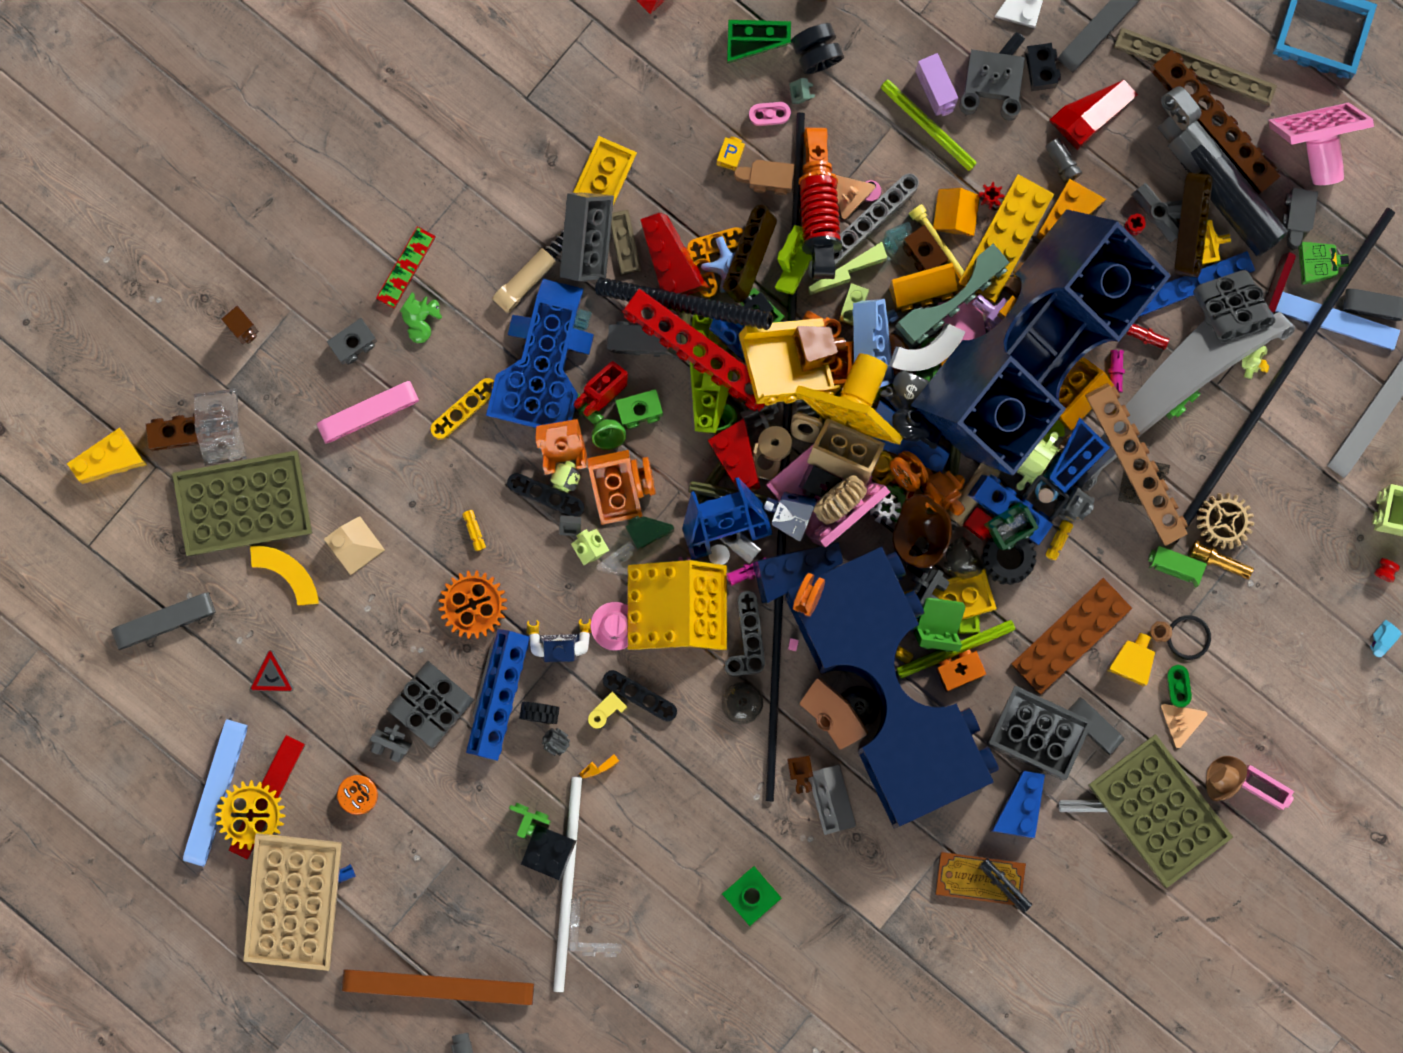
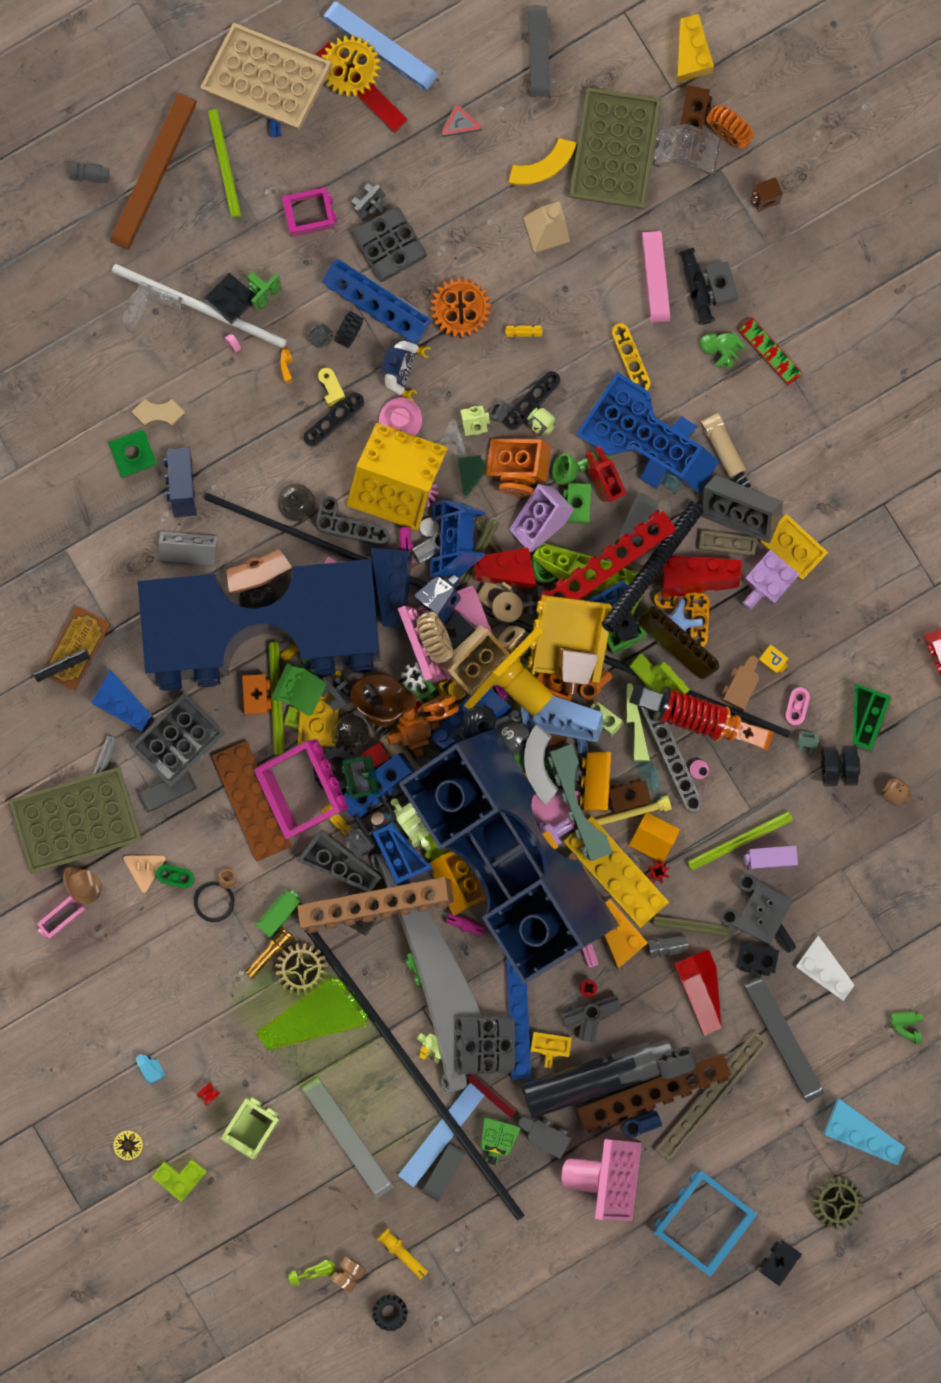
camera: 115 degrees right, 0 degrees up
(179, 388) = (730, 126): none -> orange gear
(349, 375) = (697, 289): none -> black piece
(357, 794) = (336, 160): orange head -> none
(401, 914) = (224, 163): none -> lime axle
(438, 820) = (313, 227): none -> dark pink window
(561, 443) = (570, 426): orange panel -> none
(596, 832) = (232, 343): none -> bright pink tile
(649, 185) = (769, 580): none -> lavender brick
(669, 440) = (541, 517): none -> lavender slope
(701, 895) = (149, 412): none -> tan tile
(764, 832) = (180, 482): none -> dark blue wedge
(801, 770) = (221, 530): reddish brown plate -> none
(808, 595) = (358, 571): orange head -> none
(851, 194) = (702, 751): light nougat piece -> none
(1033, 144) = (691, 926): none -> olive axle
(1064, 606) = (277, 800): none -> dark pink window
(1101, 528) = (338, 861): none -> dark grey wedge
(1134, 660) = (210, 845): yellow torso -> none
(1148, 336) = (486, 962): red pin -> none
(1193, 224) = (568, 1035): dark brown beam -> none
(1249, 122) = (644, 1124): none -> dark blue piece
(1276, 484) = (315, 1016): none -> clear neon green windscreen

